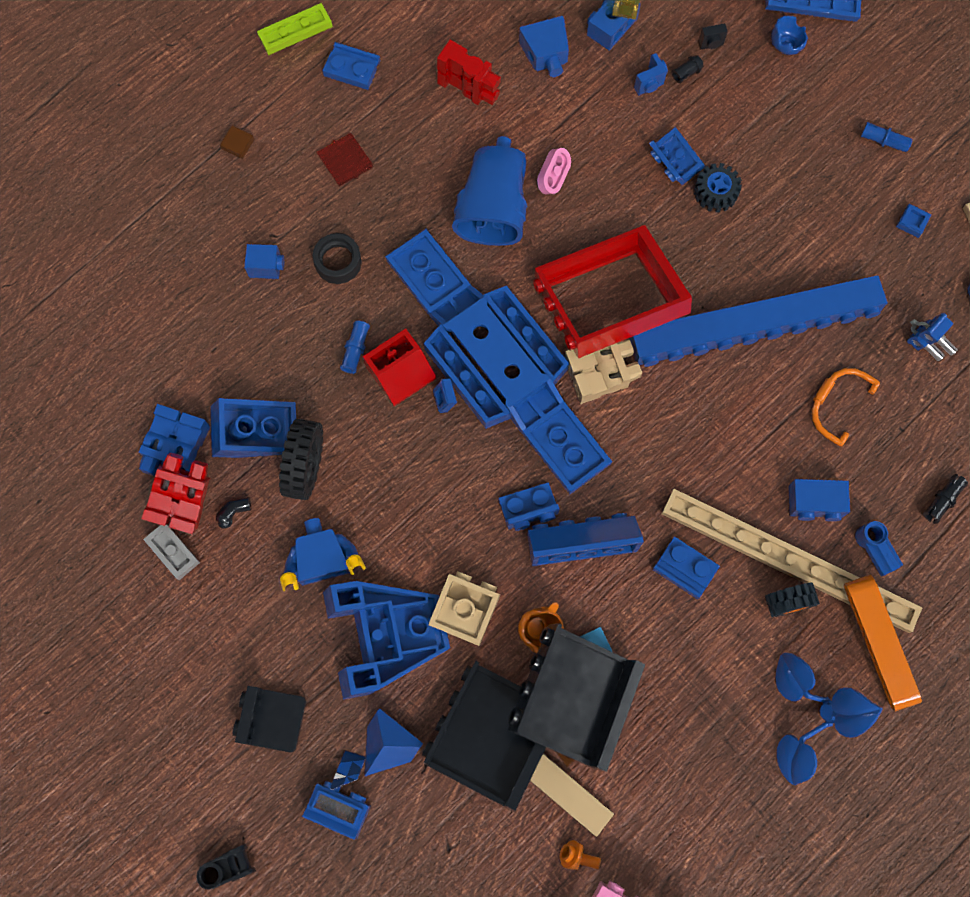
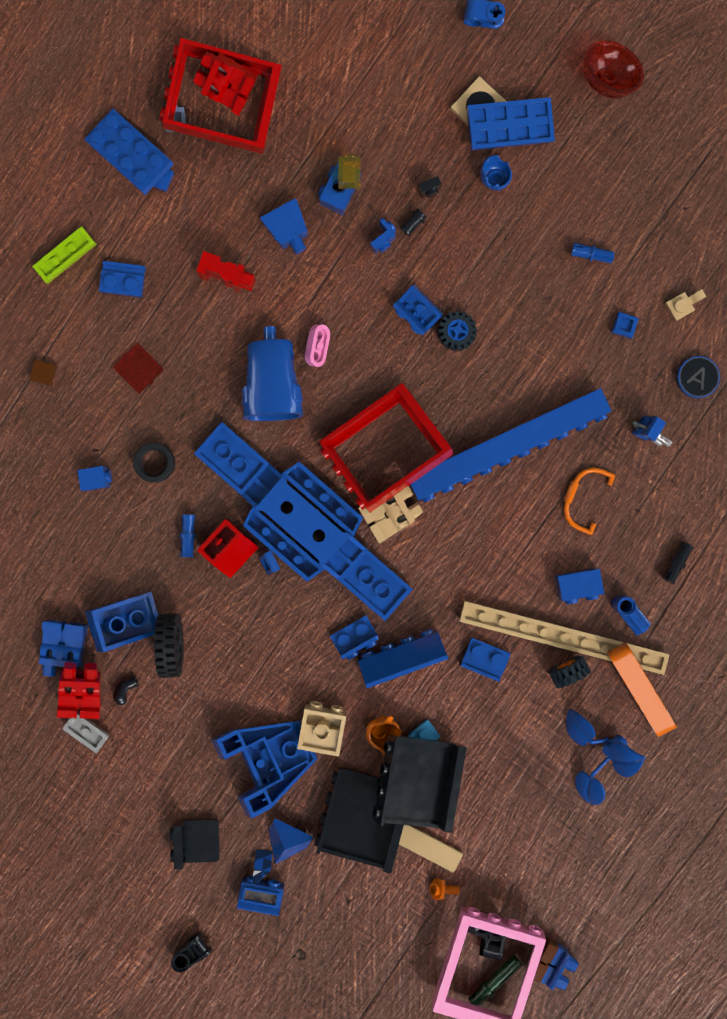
camera: 10 degrees left, 15 degrees up
(319, 556) = (201, 713): blue torso -> none

